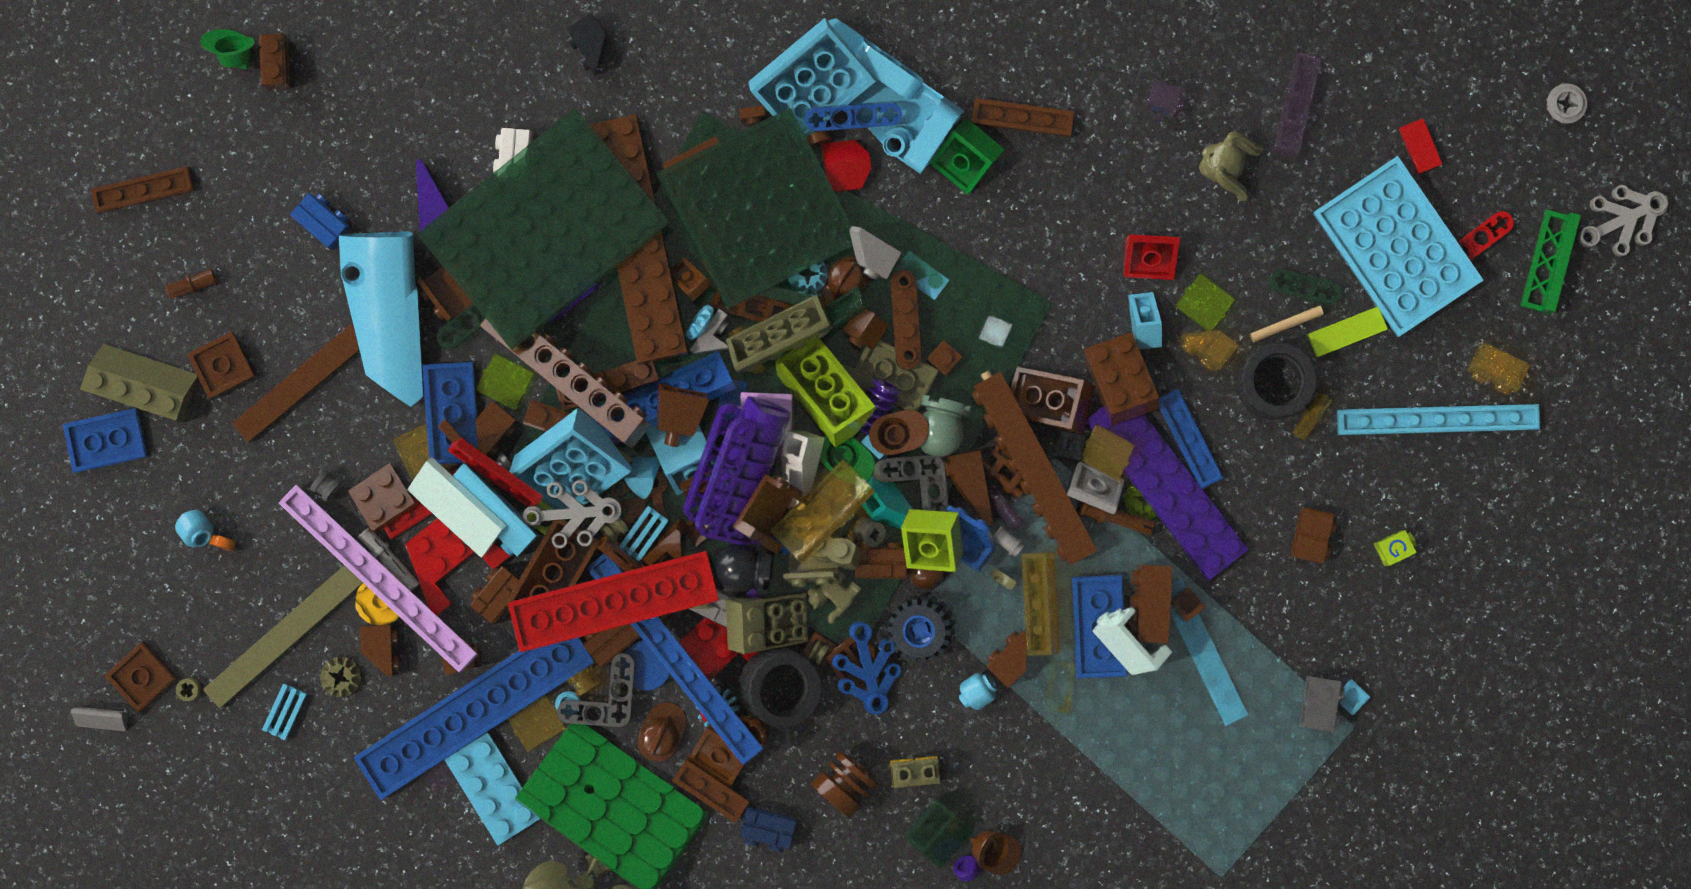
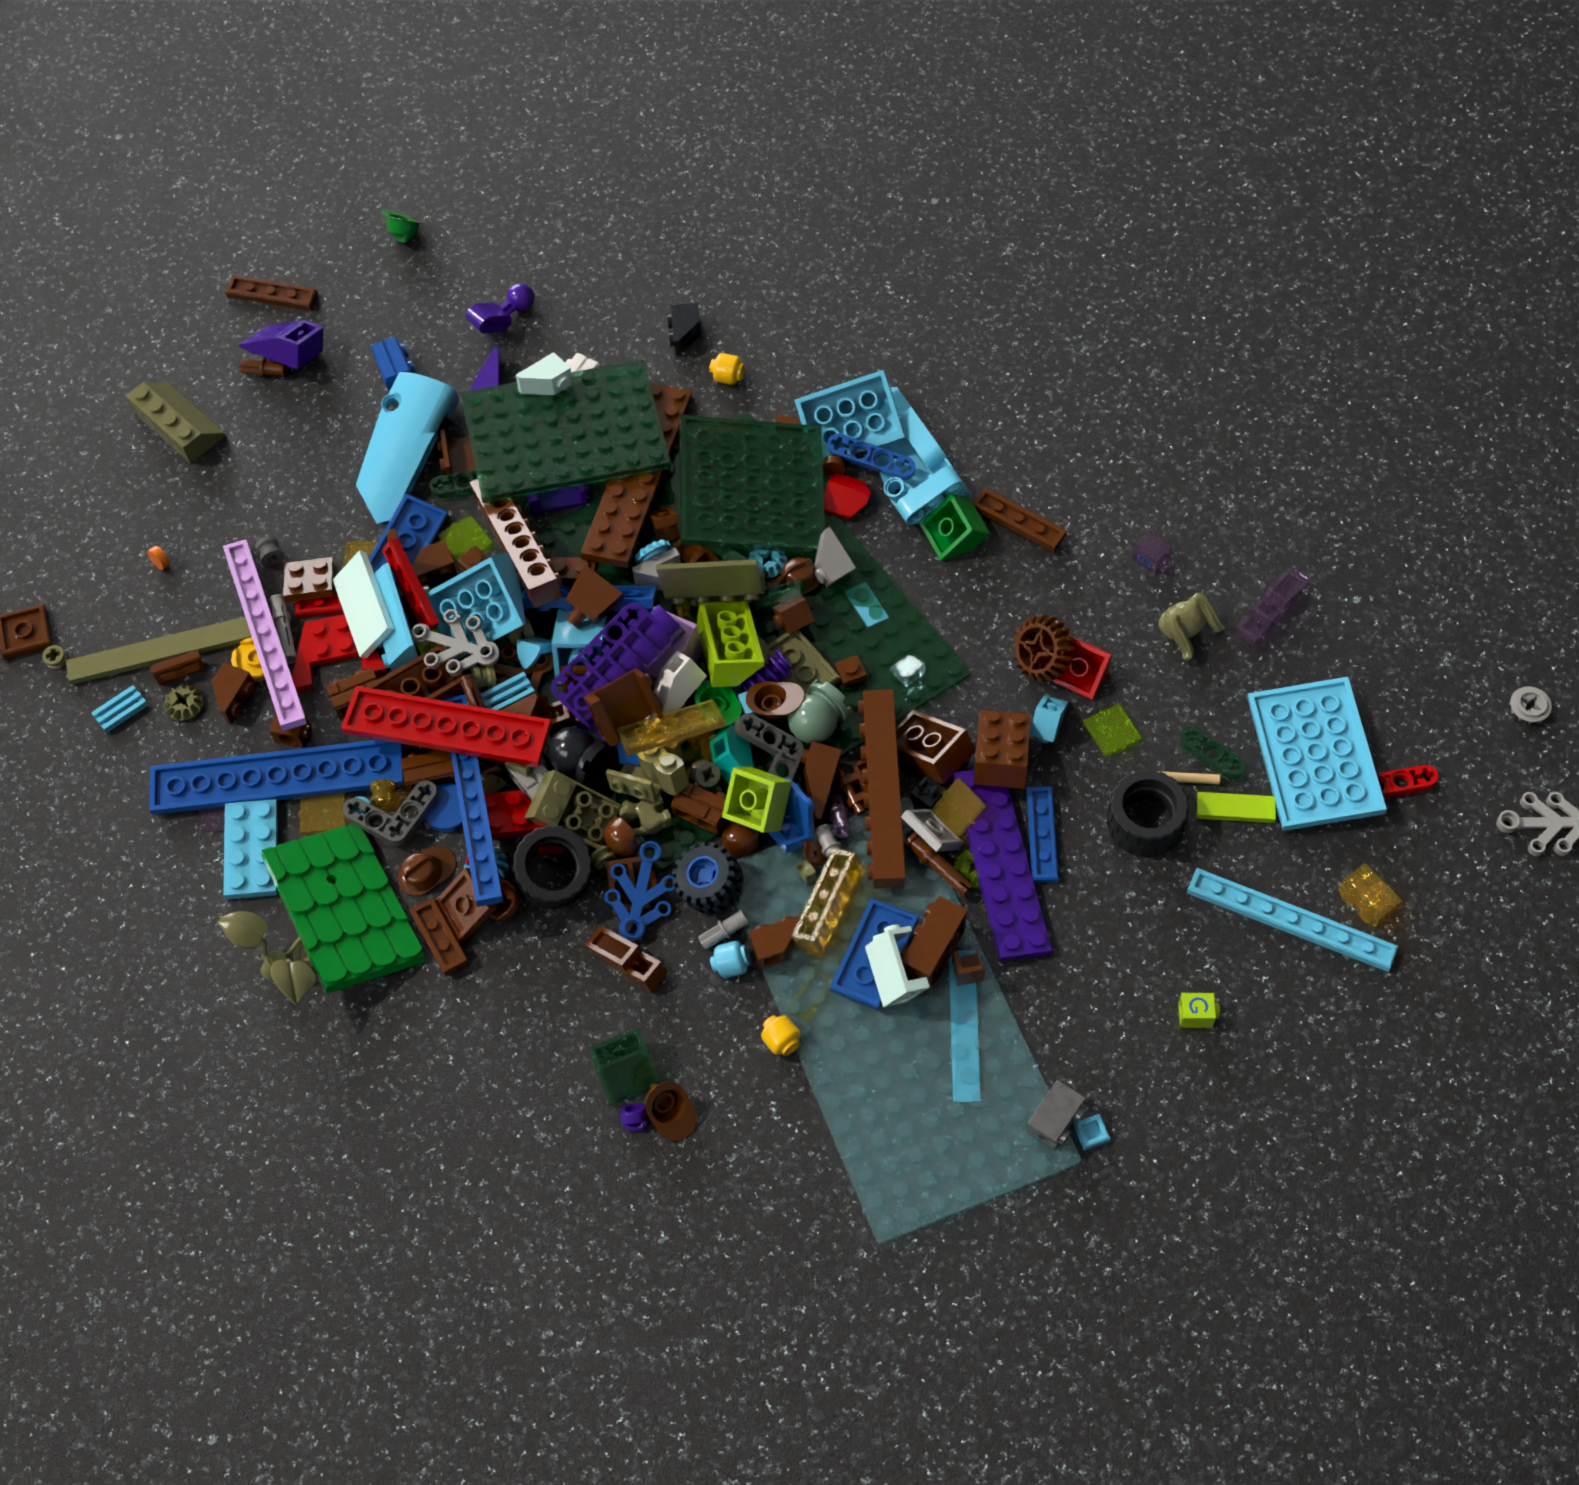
camera: 30 degrees right, 25 degrees down
(105, 440) = (121, 449): blue tile -> none
(194, 528) = (143, 535): medium azure head -> none
(198, 250) = (287, 343): none -> dark purple slope
(221, 365) = (247, 432): reddish brown plate -> none
(275, 61) = (429, 245): reddish brown brick -> none
(298, 384) = (296, 472): reddish brown tile -> none
(315, 647) = (178, 667): none -> reddish brown tile
(392, 116) = (496, 318): none -> dark purple beam
(498, 183) = (545, 377): none -> light aqua slope
(658, 73) = (727, 369): none -> yellow head
(675, 624) = (492, 783): none -> olive tile
(767, 828) = (470, 992): dark blue brick -> none
(825, 630) = (620, 837): none -> reddish brown hair
(844, 784) = (562, 978): reddish brown wheel -> none
(885, 732) = (626, 958): none -> reddish brown slope
(905, 320) = (831, 626): reddish brown plate -> none
(915, 772) = (634, 1002): olive hips -> none
(957, 665) = (723, 929): none -> light grey axle
(1002, 559) = (813, 853): none -> reddish brown plant
(1056, 740) = (781, 1035): none -> yellow head
(1113, 257) = (1032, 651): none -> reddish brown gear
(1210, 346) = (1099, 762): clear yellow slope -> none
(1312, 416) = (1168, 862): clear yellow axle -> none
(1313, 535) = (1120, 964): reddish brown brick -> none
(1420, 146) = (1374, 685): red tile -> none
(1559, 264) = (1468, 830): green fence -> none

